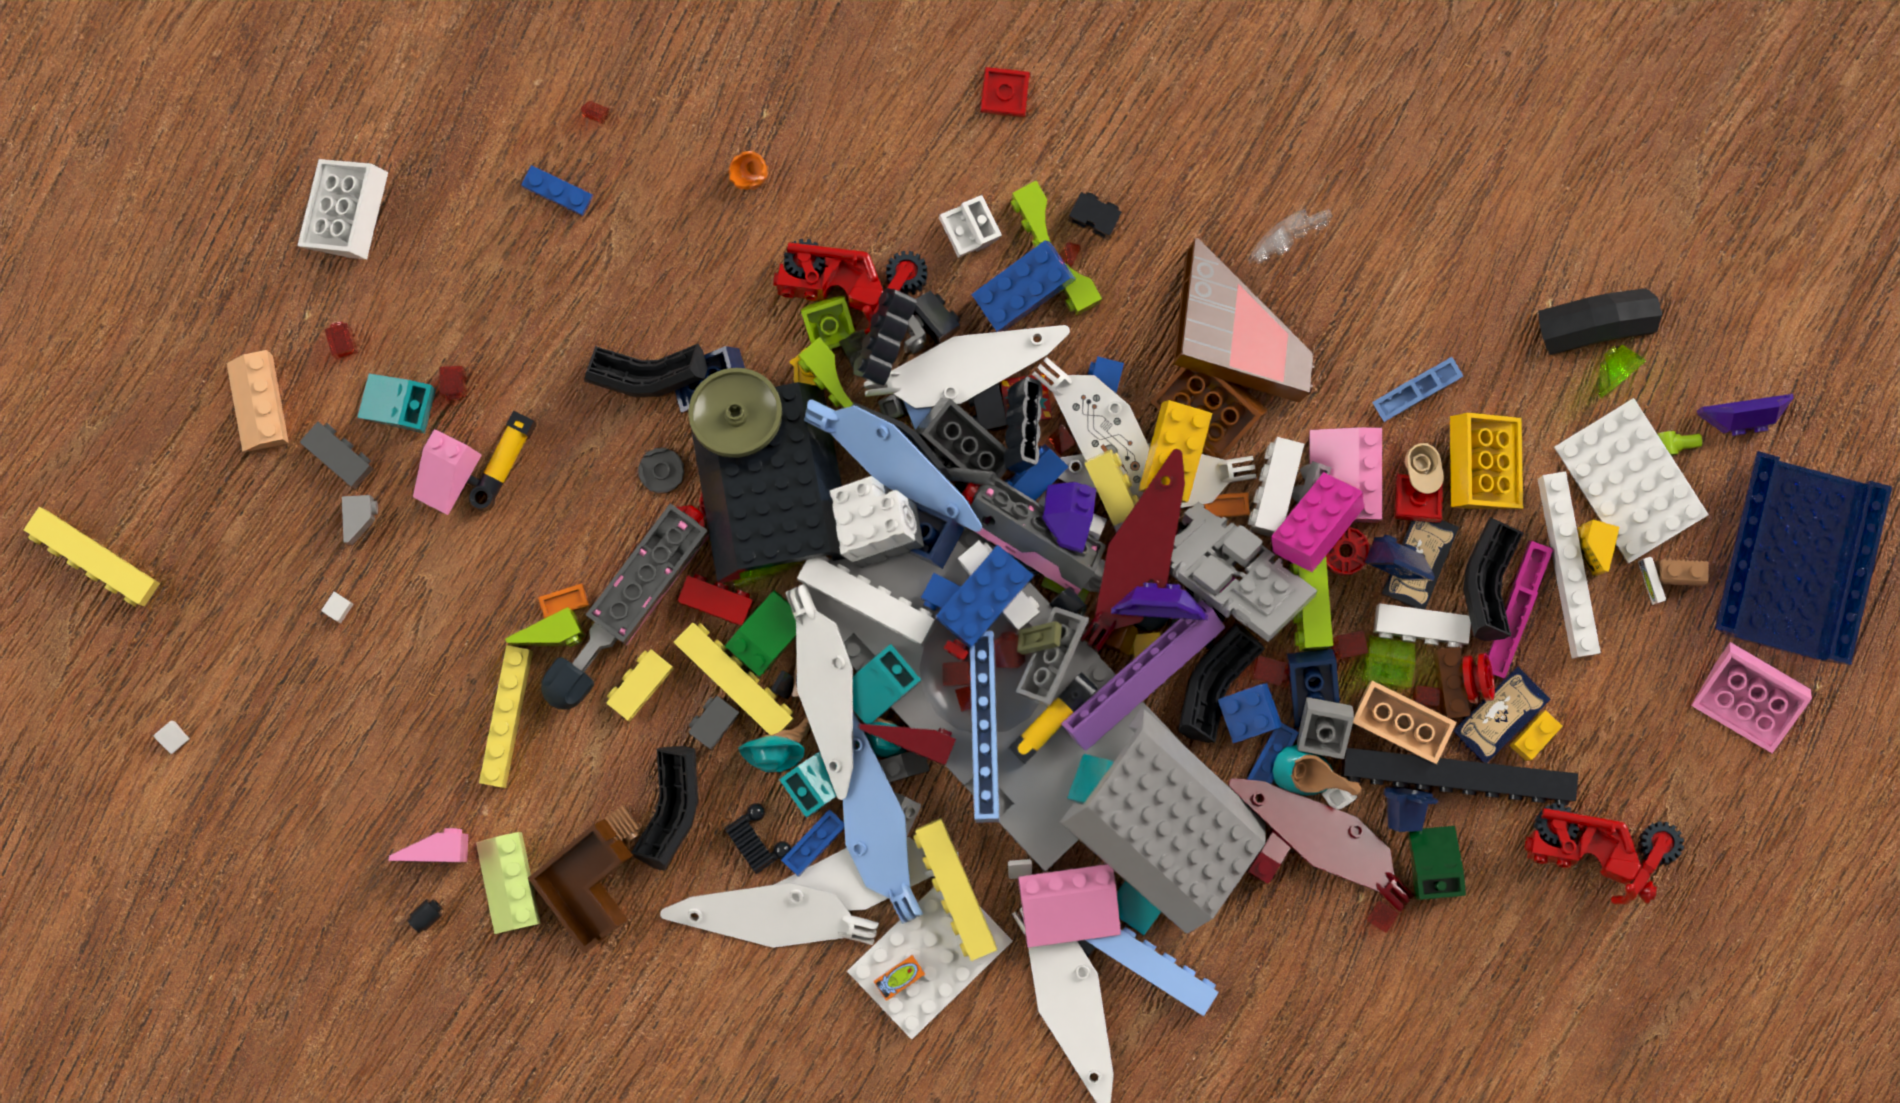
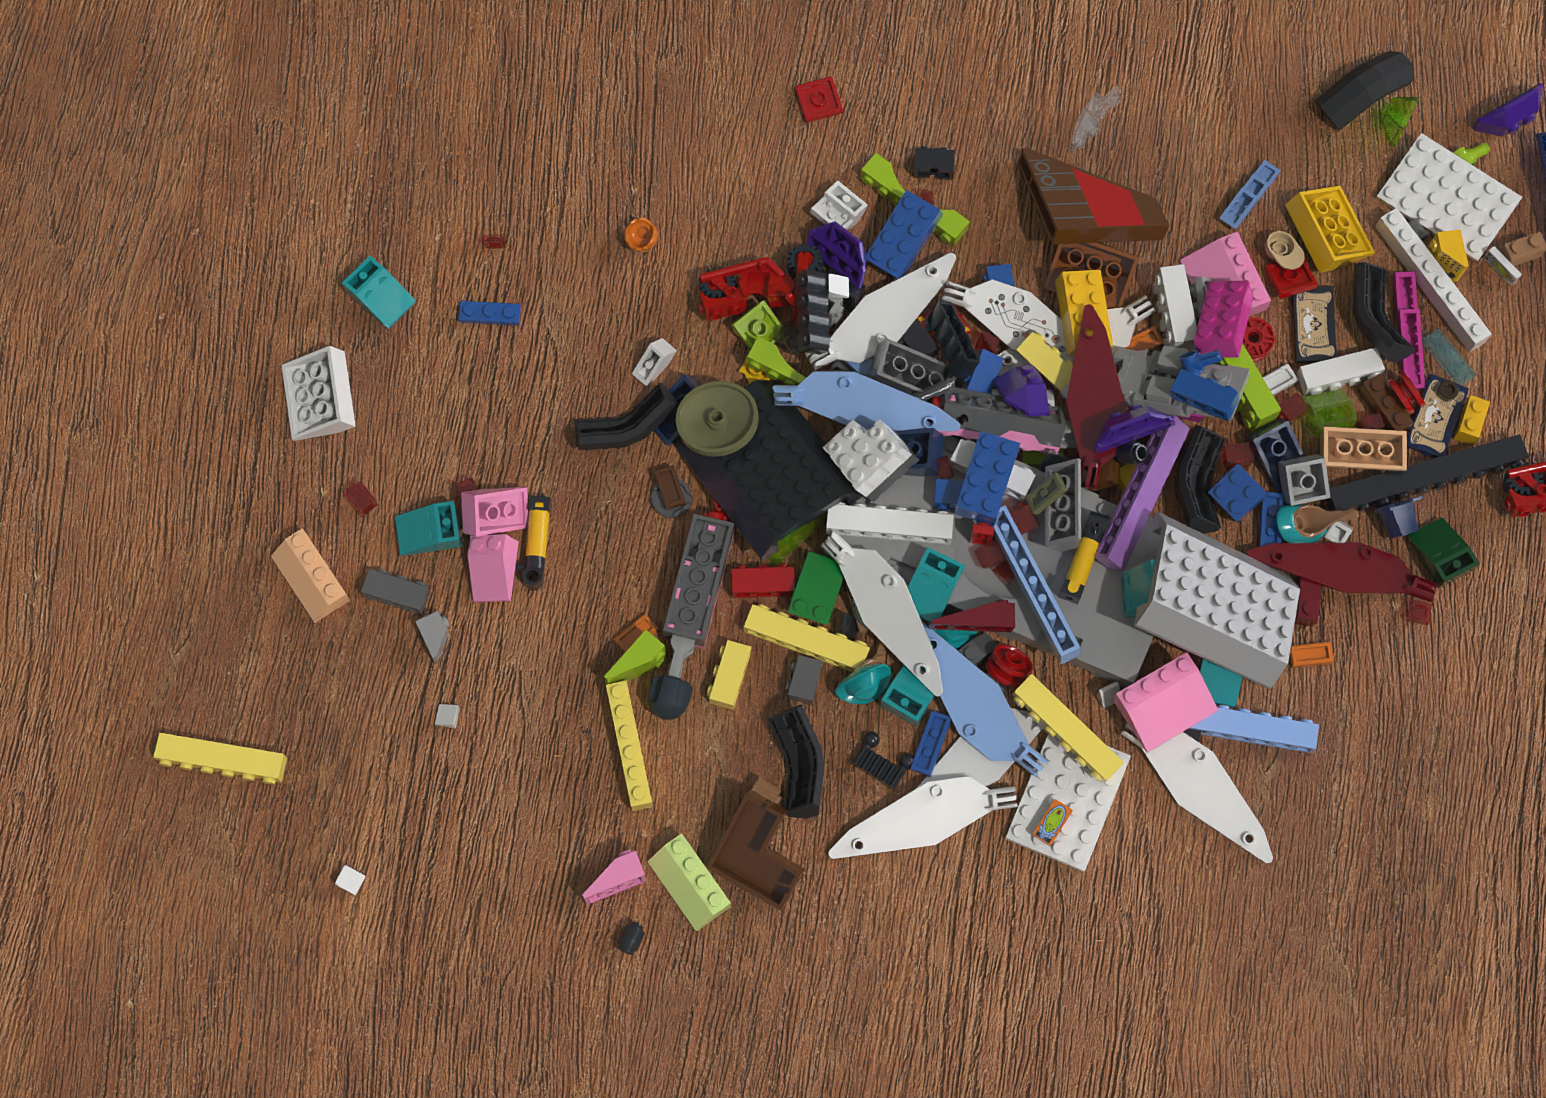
camera: 20 degrees left, 10 degrees down
(448, 122) = (378, 292): none -> teal slope
(469, 412) = (494, 510): none -> bright pink slope
(662, 460) = (669, 487): none -> reddish brown tile
(704, 315) = (654, 361): none -> white slope
(925, 318) = (838, 286): none -> white slope
(927, 797) = (1009, 665): none -> red wheel
(947, 277) = (840, 251): none -> dark purple wedge
(948, 563) = (944, 468): none -> clear red slope
(1150, 630) = (1132, 453): none -> black brick
(1248, 913) = (1311, 654): none -> orange tile
(1251, 603) = (1205, 394): none -> blue brick
(1259, 561) = (1196, 361): none -> blue axle
(1351, 606) = (1280, 379): none -> white tile
(1398, 560) = (1300, 326): dark blue slope -> none
(1525, 693) = (1447, 391): none -> dark brown tile
(1546, 656) = (1449, 357): none -> clear light blue plate
(1579, 503) = (1419, 230): none -> dark grey bush

